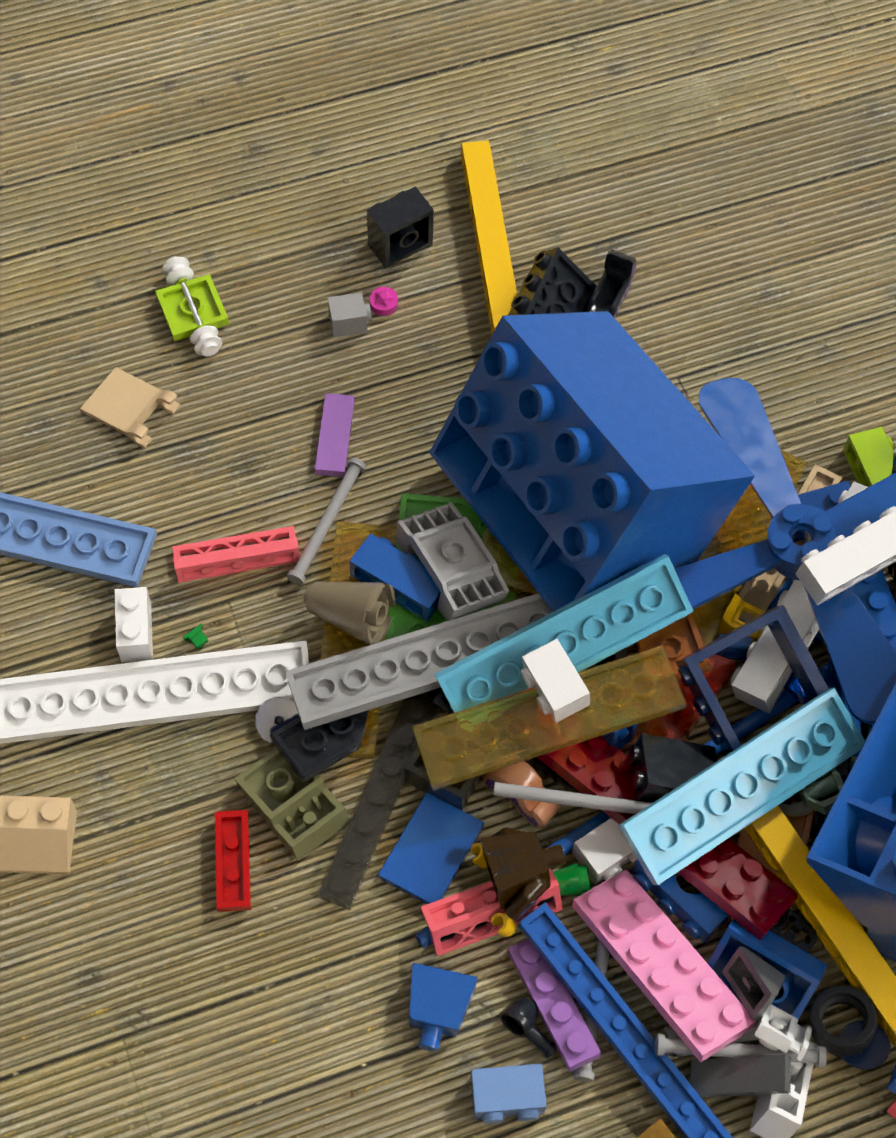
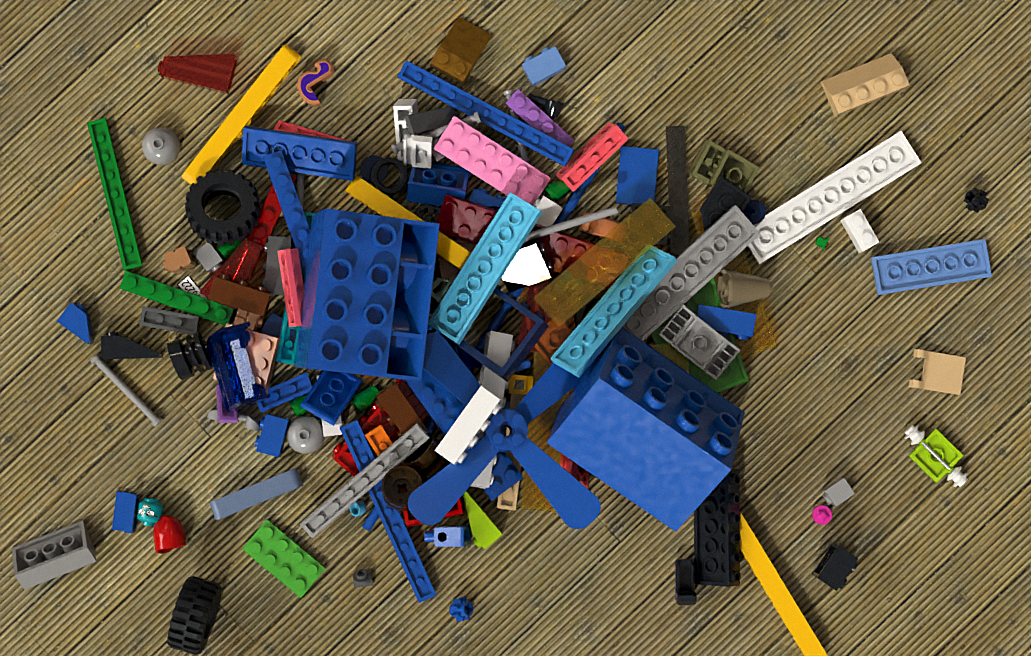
camera: 160 degrees right, 25 degrees up
(232, 861) = (738, 123): red plate -> none
(237, 558) = (825, 295): coral fence -> none
(297, 574) = (784, 345): light grey bar -> none
(335, 435) = (807, 406): medium lavender tile -> none
(438, 1003) = (597, 95): blue torso -> none
(517, 872) = (586, 175): dark brown torso -> none
(555, 680) = (608, 277): white brick -> none
(753, 981) = (441, 170): dark grey slope -> none

